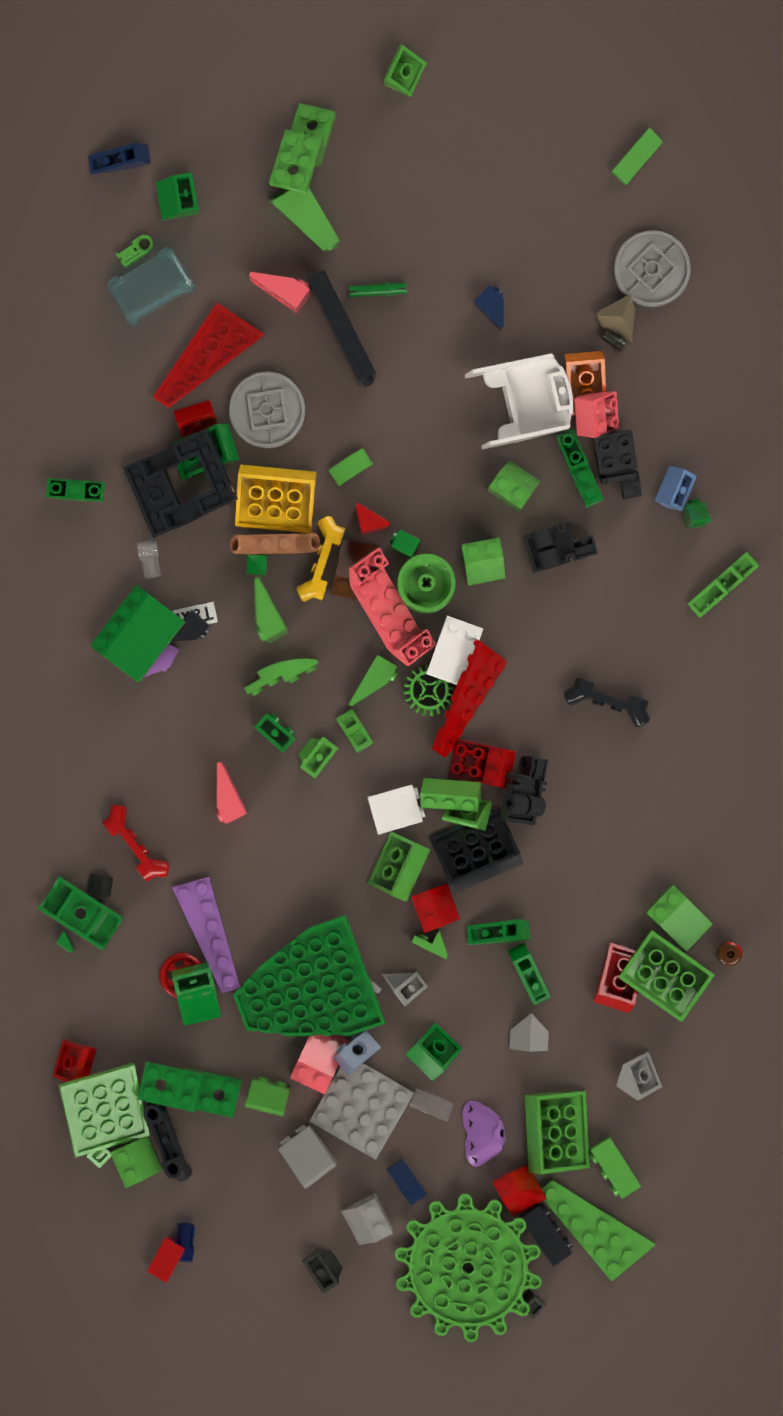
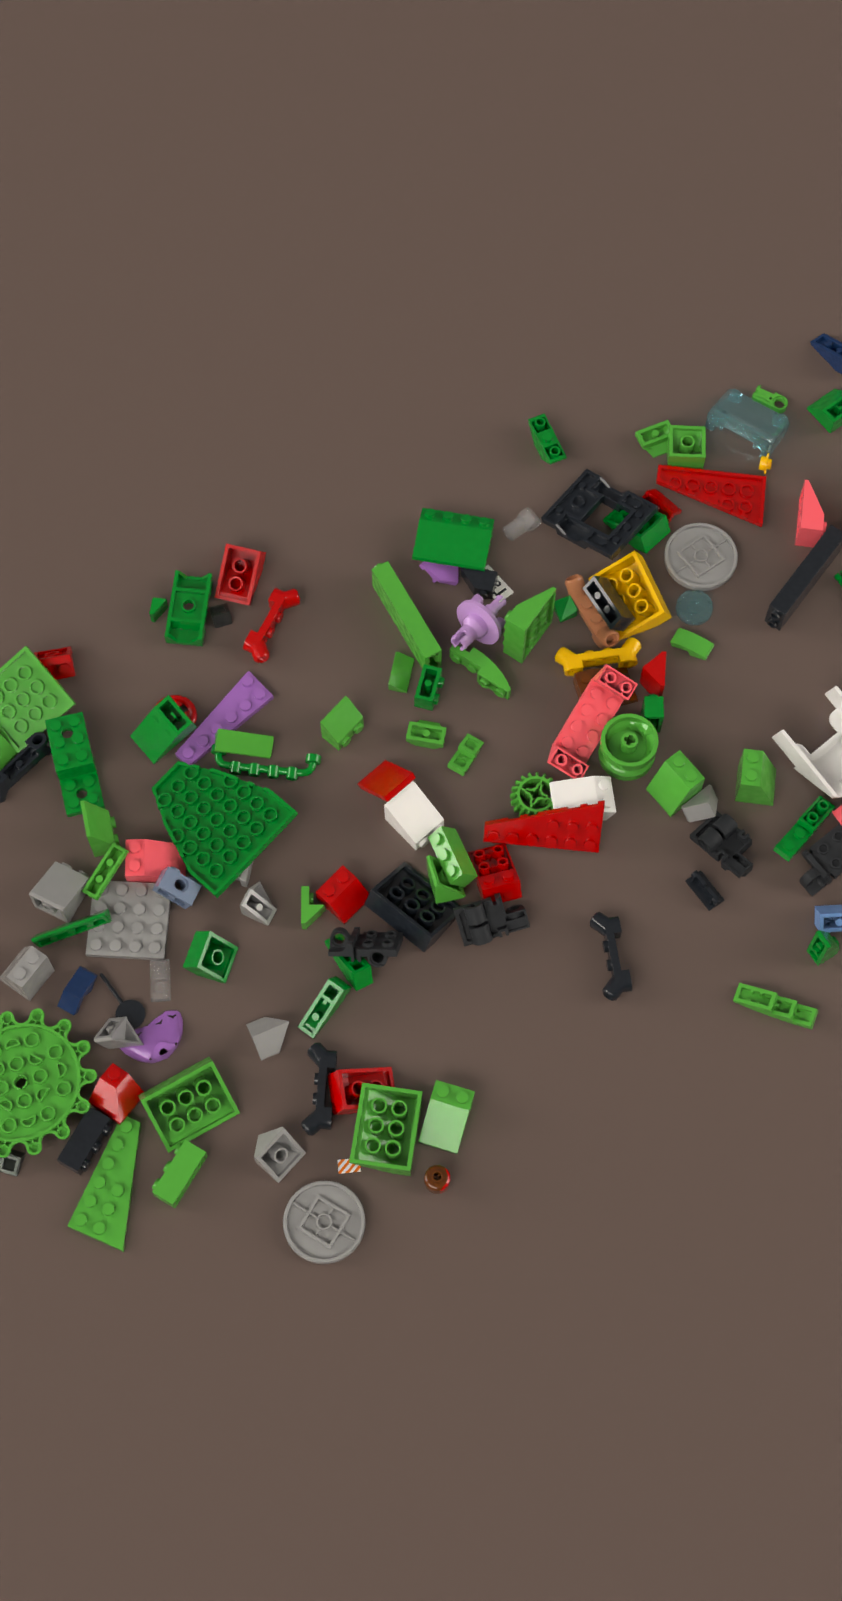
camera: 65 degrees right, 20 degrees down
(68, 848) = (239, 574): none -> red slope
(123, 382) = (654, 438): none -> bright green slope
(149, 361) = (686, 446): none -> bright green slope
(194, 717) = (406, 616): none -> bright green brick
(202, 294) = (765, 463): none -> yellow plate
(228, 800) = (352, 672): coral slope -> none
(237, 656) = (479, 622): none -> lavender piece
(244, 748) = (400, 673): none -> bright green slope
(246, 928) = (243, 743): none -> bright green slope
(273, 829) = (341, 724): none -> bright green slope
(277, 525) = (608, 603): none -> brick
(283, 913) = (272, 771): none -> green bar
(311, 1109) = (105, 871): none -> bright green slope
(314, 444) = (694, 607): none -> clear light blue tile
(346, 1161) = (72, 928): none -> green slope
(350, 818) = (386, 780): none -> red tile
(377, 676) = (518, 747): bright green slope -> none
(398, 866) = (364, 847): bright green slope -> none
(448, 1145) = (130, 1008): none -> black piece
(464, 1164) = (117, 1034): none -> light grey slope
(497, 907) = (370, 944): none -> black plate
(512, 545) = (701, 805): none -> light grey slope
(579, 997) = (322, 1116): none -> black plate
(589, 587) = (704, 890): none -> black hinge
(675, 1024) = (346, 1167): none -> sticker
(716, 1065) = (324, 1222): none -> light grey plate

